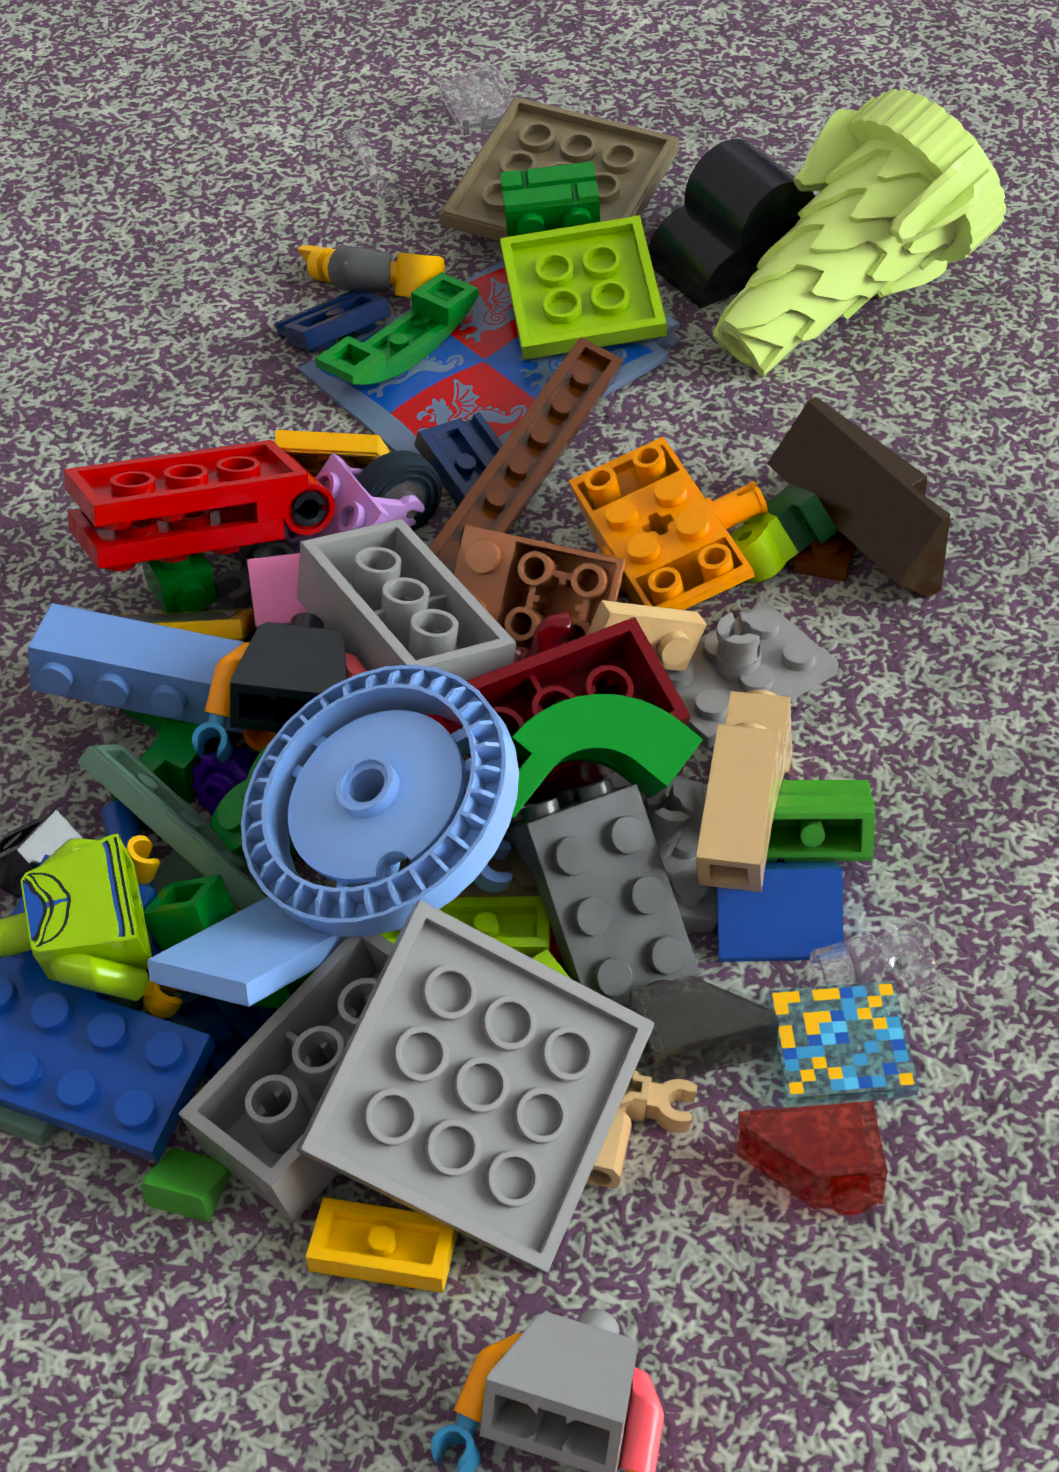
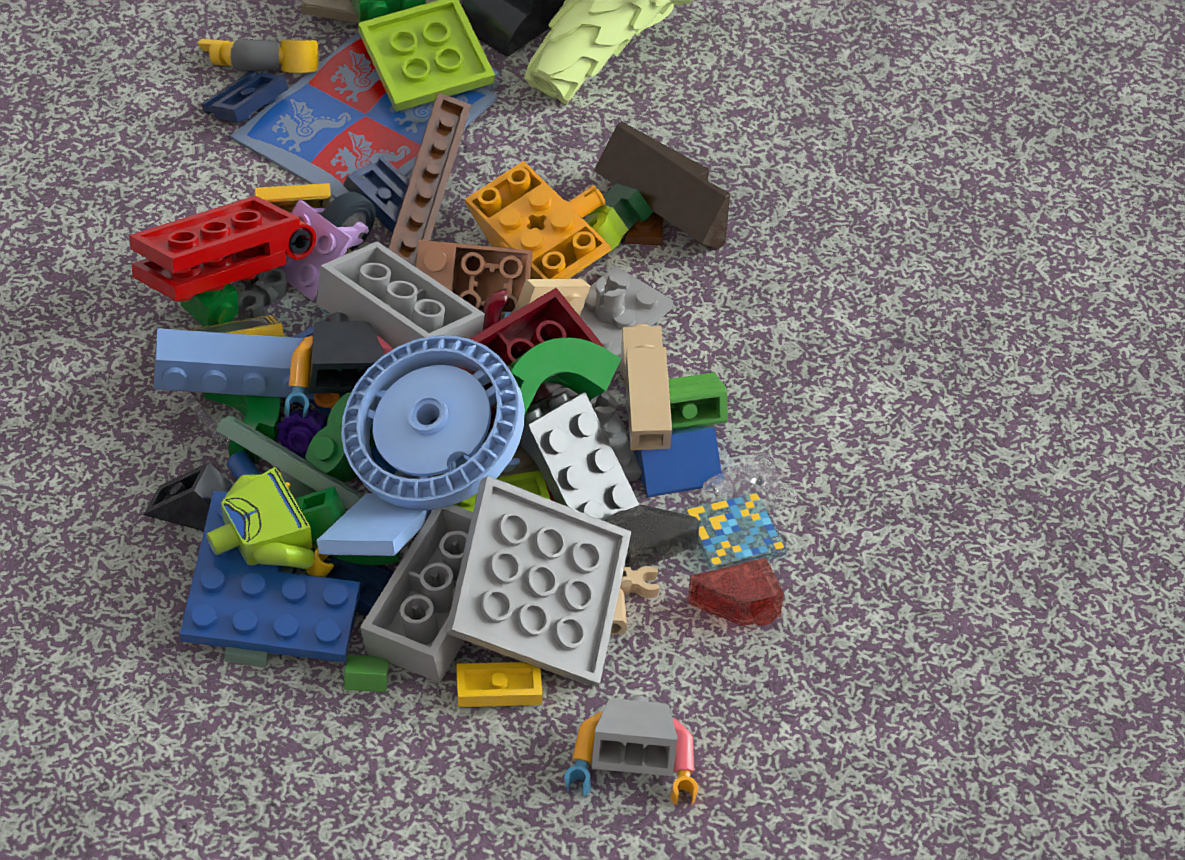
camera: 20 degrees left, 0 degrees up
(275, 588) = (294, 301): bright pink brick -> none
(404, 343) = (307, 104): green slope -> none

